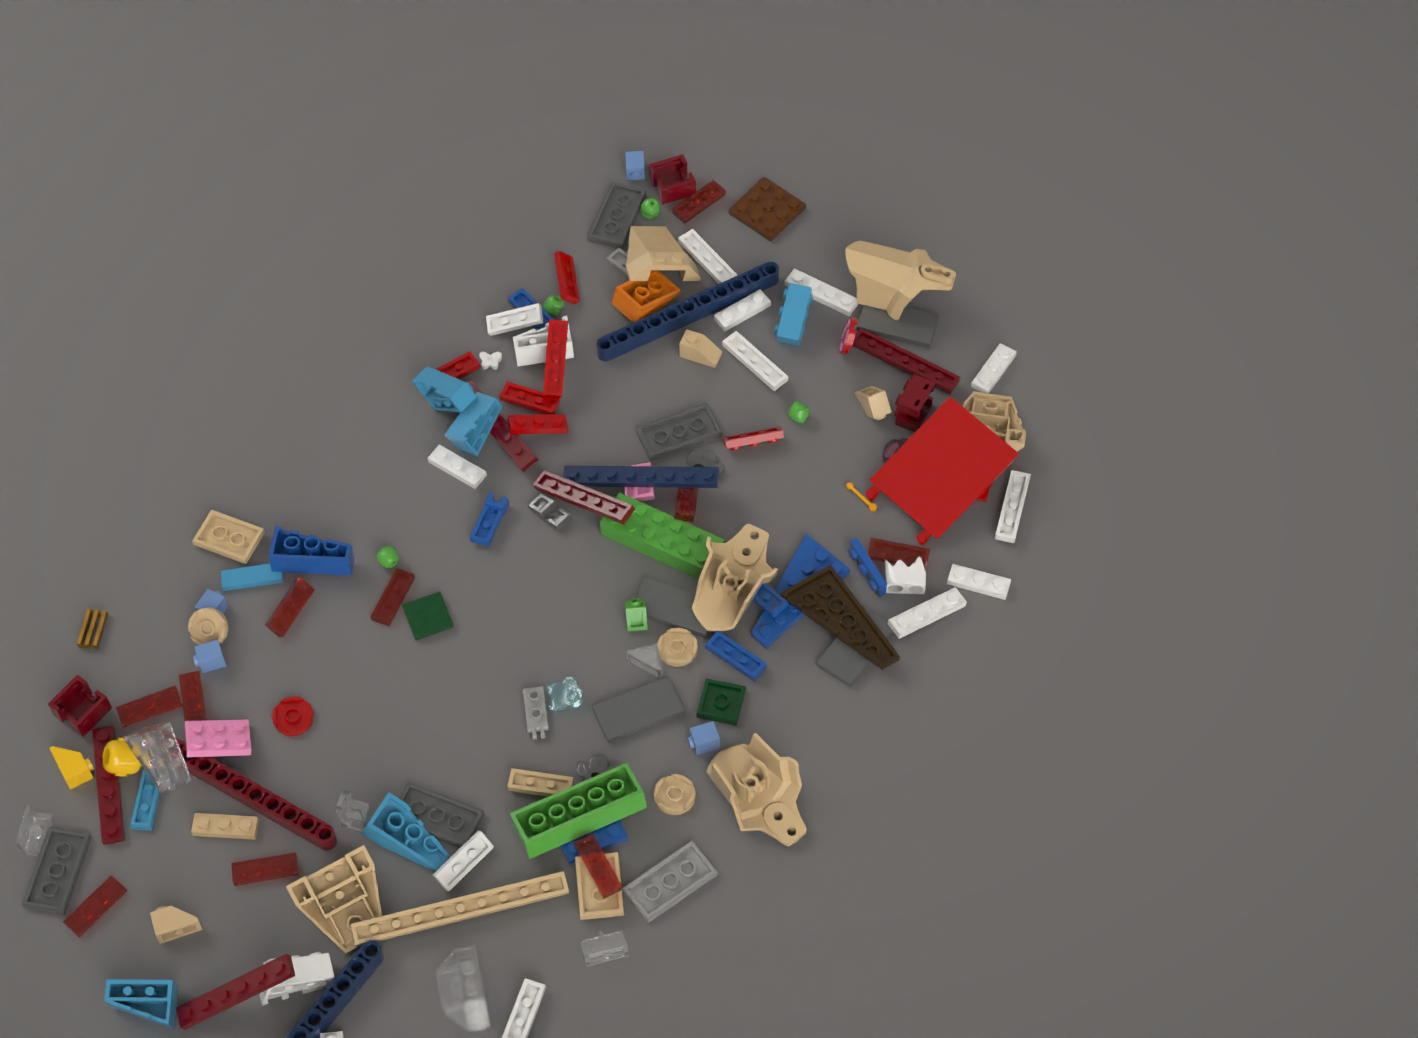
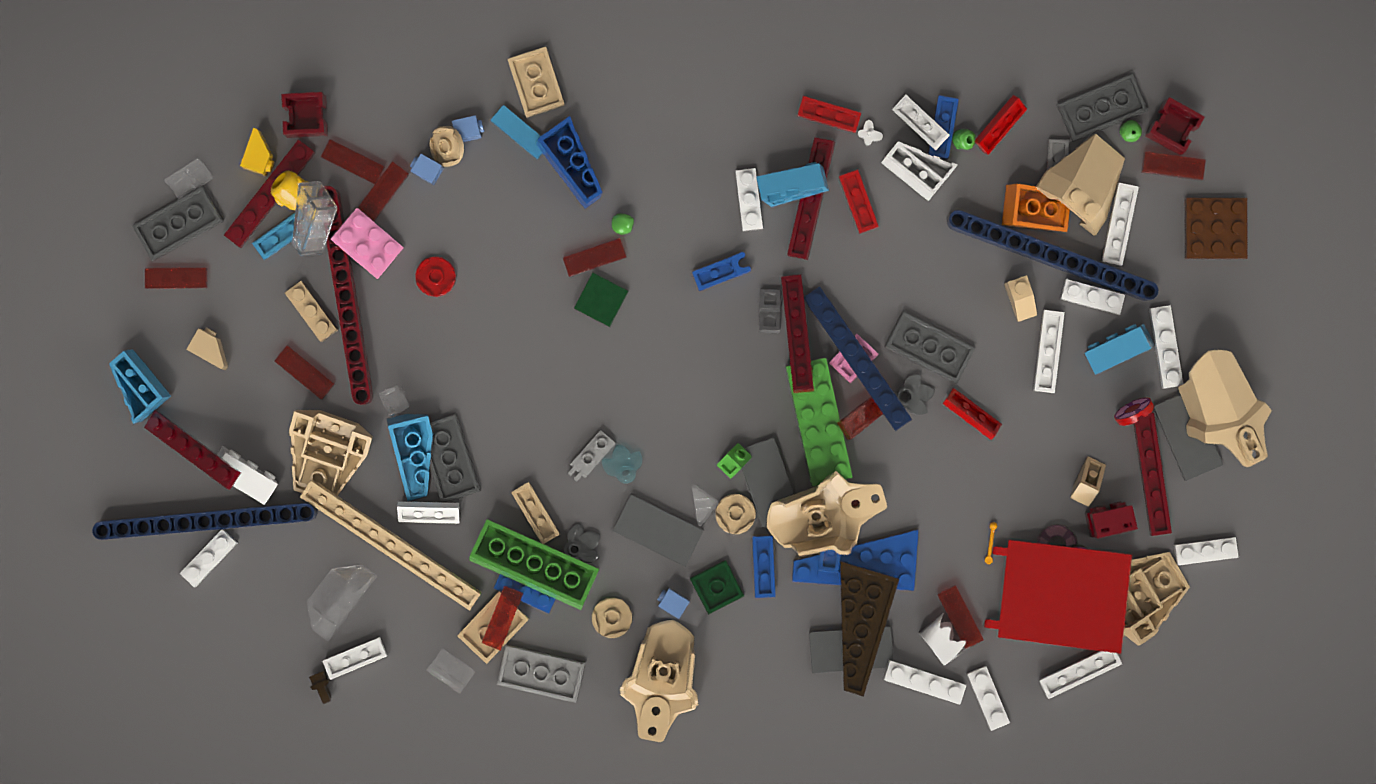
camera: 50 degrees right, 30 degrees up
(89, 613) = (357, 57): pearl gold tile -> none
(289, 607) = (517, 189): clear red plate -> none
(443, 390) = (799, 135): dark azure wedge -> none
(538, 424) = (838, 231): red plate -> none
(555, 358) = (905, 196): red plate -> none
(635, 165) = (1164, 79): medium blue brick -> none
(798, 412) = (1027, 430): bright green piece -> none
(867, 567) = (925, 603): blue plate -> none

